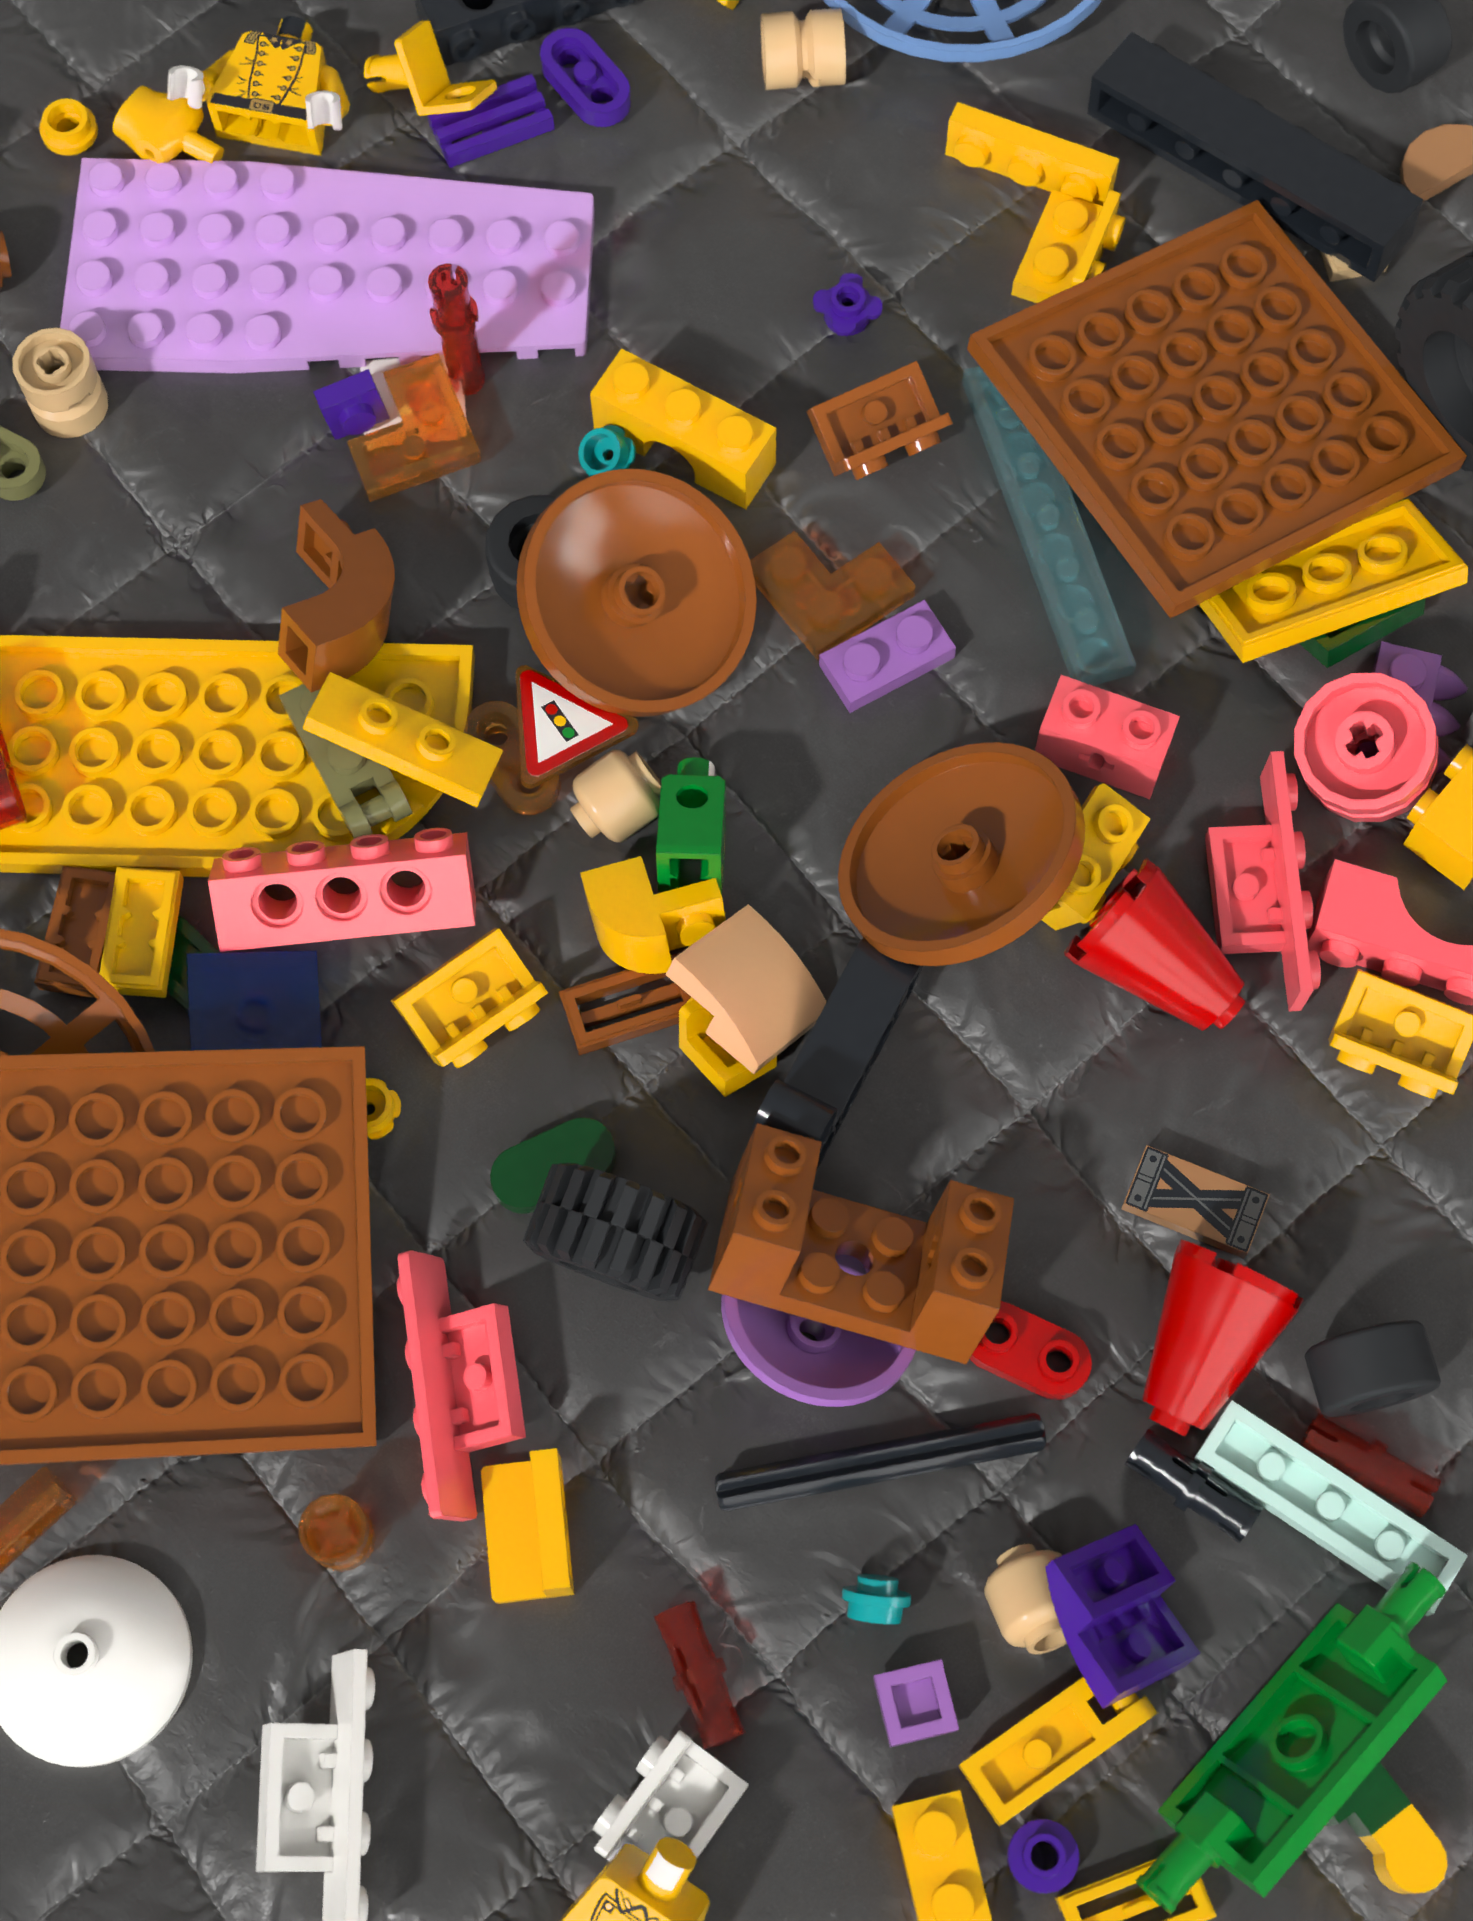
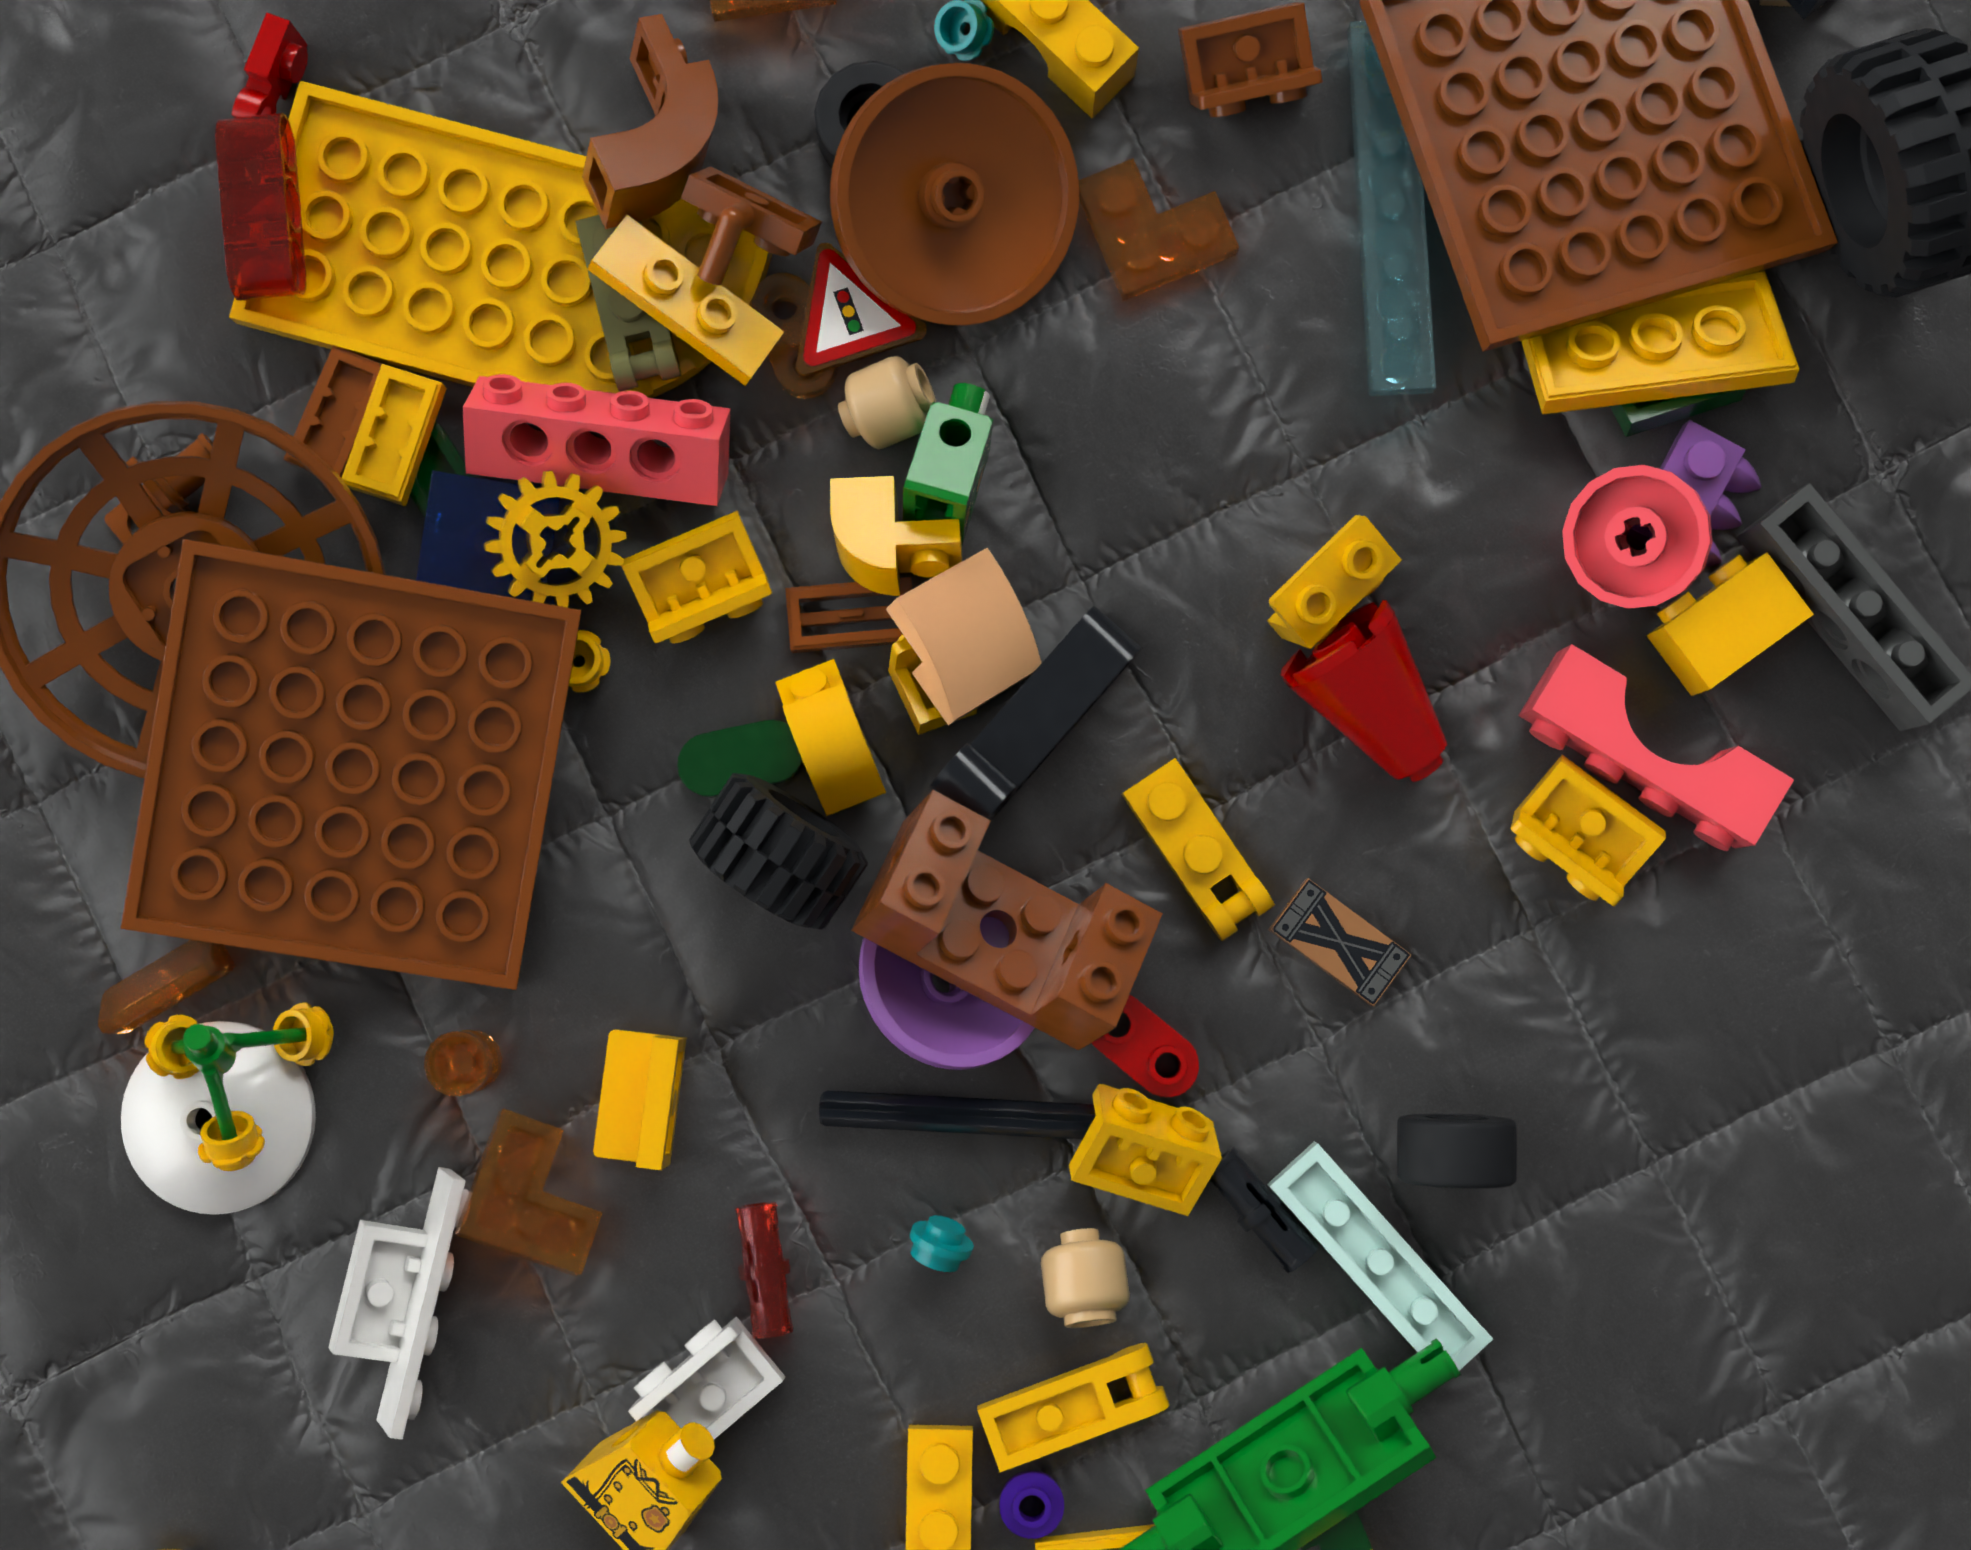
camera: 15 degrees right, 15 degrees up
(76, 1562) = (184, 1048): none -> yellow plant
(300, 981) = (582, 509): none -> yellow gear
(420, 1671) = (509, 1204): none -> clear orange plate
(430, 648) = (741, 207): none -> dark orange plate
(460, 1383) = (605, 948): coral bracket -> none
(640, 1118) = (829, 737): none -> yellow brick
(887, 656) = (1192, 314): medium lavender plate -> none
(915, 1703) = (952, 1344): medium lavender plate -> none
(961, 854) = (1206, 552): dark orange dish -> none
(1028, 1144) = (1196, 847): none -> yellow plate
(1062, 1450) = (1146, 1150): none -> yellow bracket
(1106, 736) = (1384, 457): coral brick -> none
(1115, 1614) = (1155, 1318): dark purple slope -> none
(1211, 1335) = (1316, 1079): red cone -> none
(1259, 888) = (1491, 644): coral bracket -> none
(1371, 1465) = (1429, 1230): clear red pin -> none

